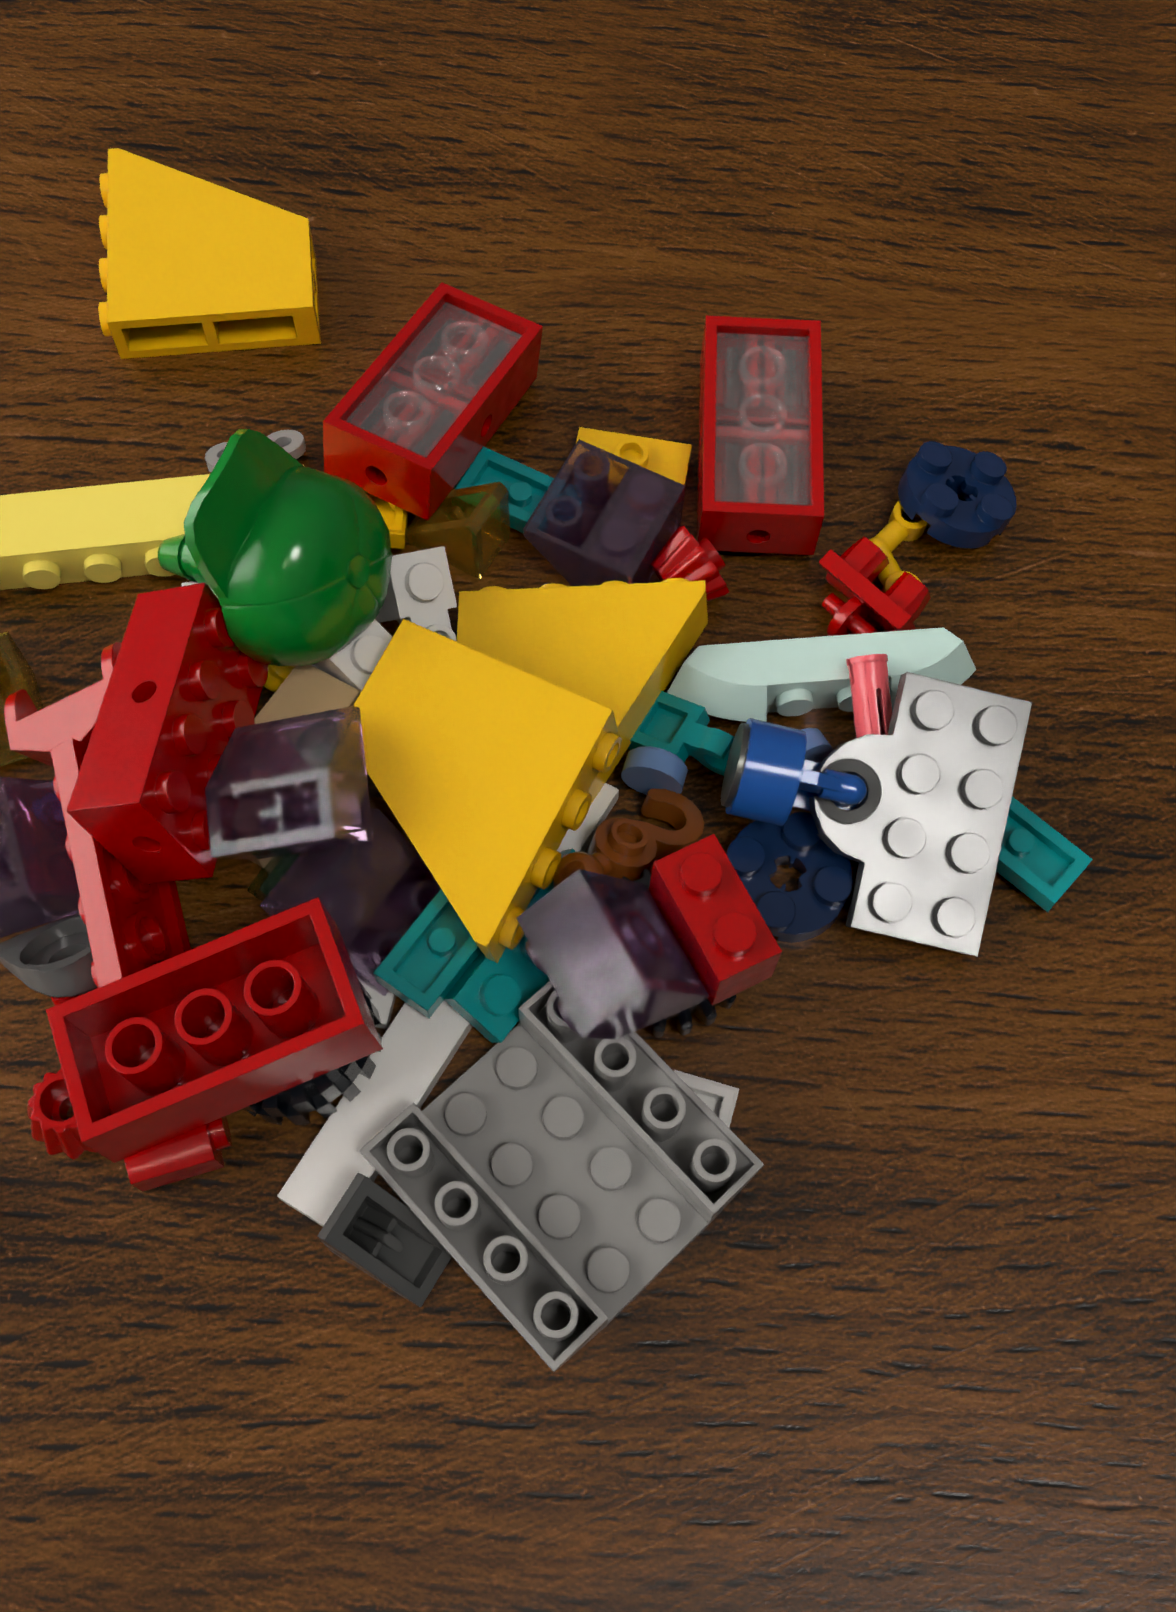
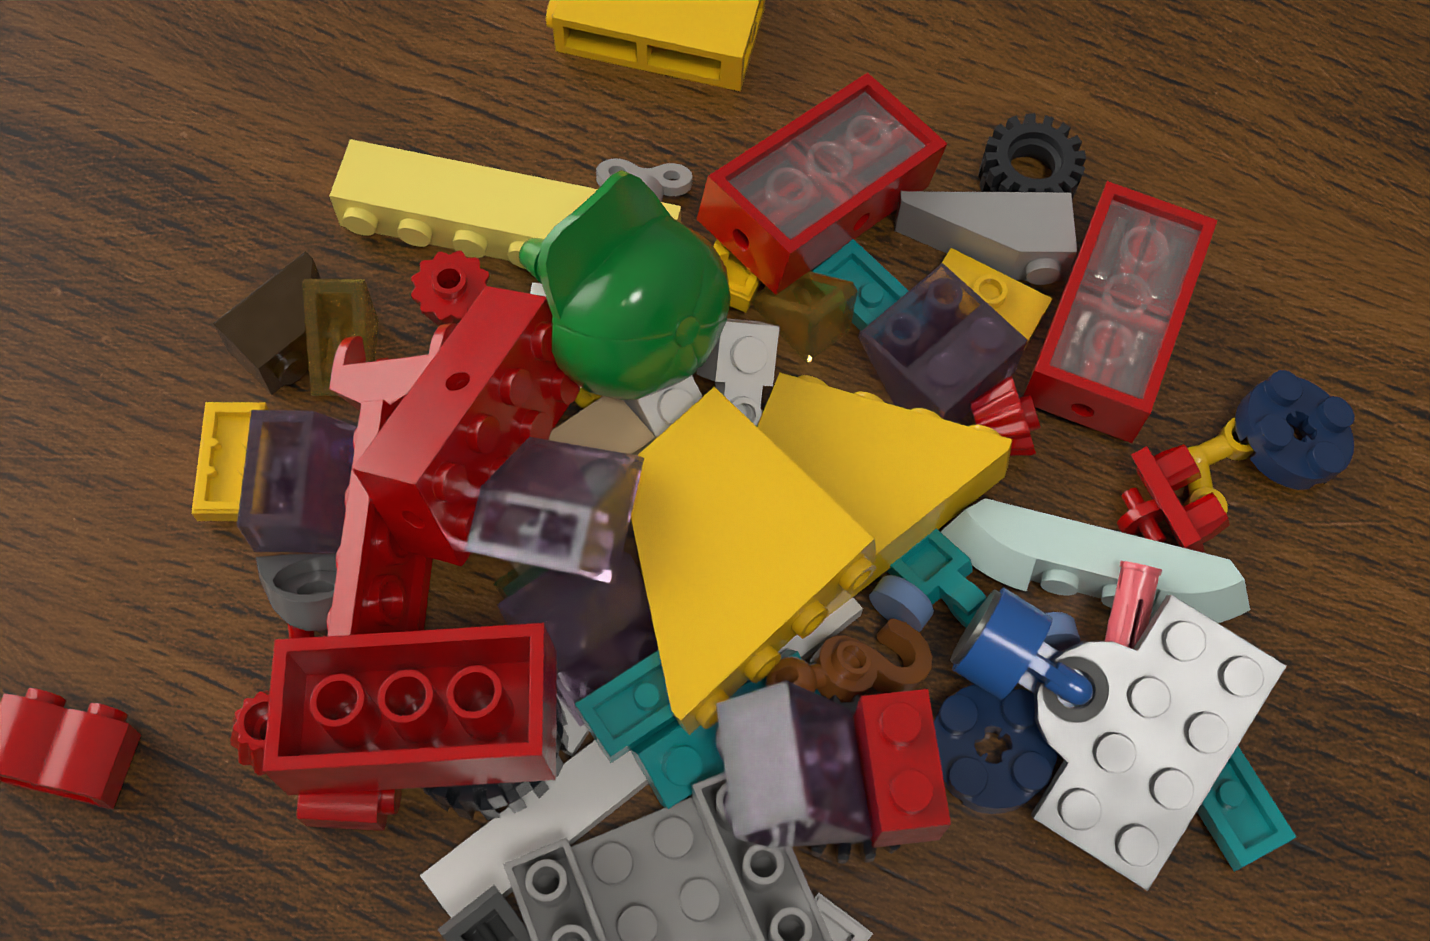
camera: 20 degrees right, 0 degrees up
(95, 614) = (448, 286): none -> red piece
(628, 305) = (1037, 142): none -> black tyre
(630, 394) = (1012, 232): none -> light grey slope

